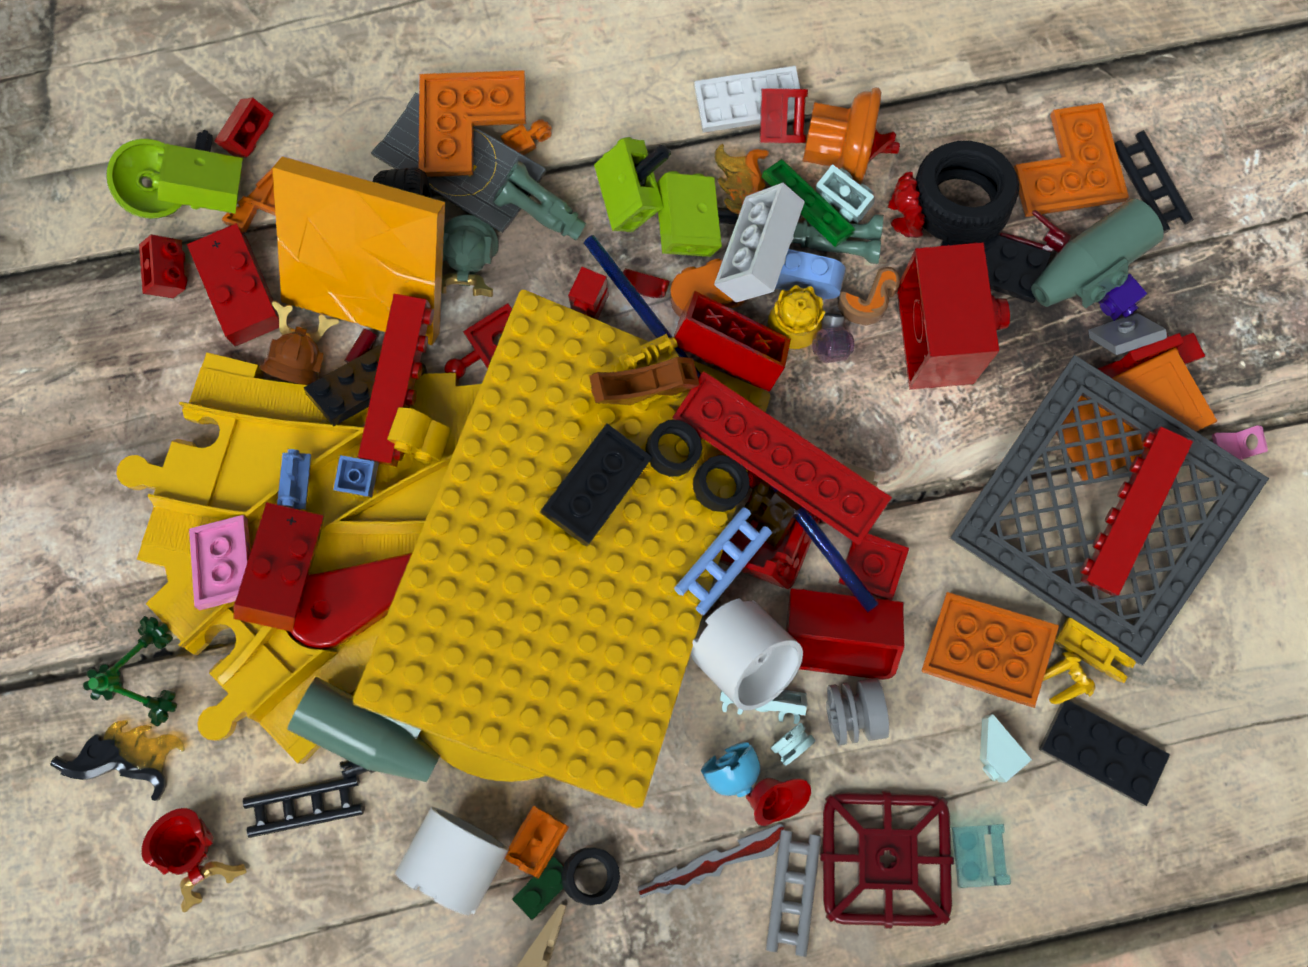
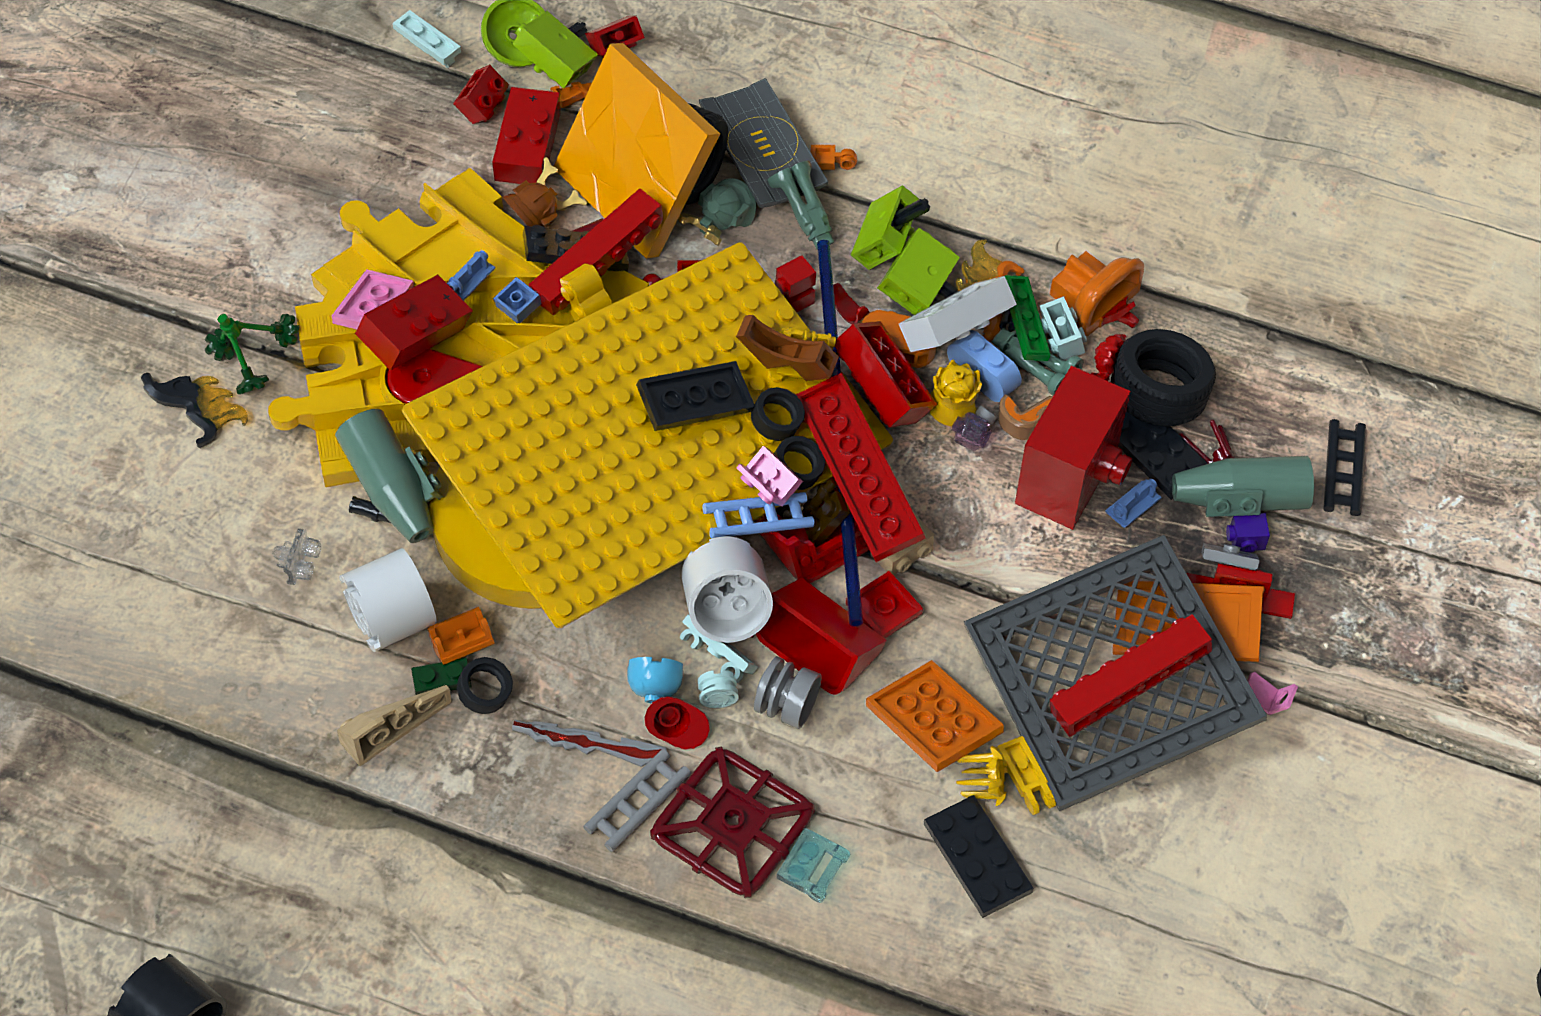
camera: 30 degrees right, 20 degrees down
(67, 235) = (427, 38): none -> light aqua plate
(180, 846) = (195, 480): red helmet -> none
(287, 798) = (296, 499): black bar -> none
(336, 869) = (292, 556): none -> clear hips
(455, 104) = (790, 99): orange plate -> none
(714, 521) = (770, 477): none -> bright pink bracket
(737, 98) = (1035, 225): white plate -> none
(774, 115) = (1046, 243): red plate -> none
(1000, 751) = (887, 798): light aqua slope -> none
(1010, 338) = (1134, 503): none -> medium blue hinge
(1084, 174) = (1284, 427): orange plate -> none

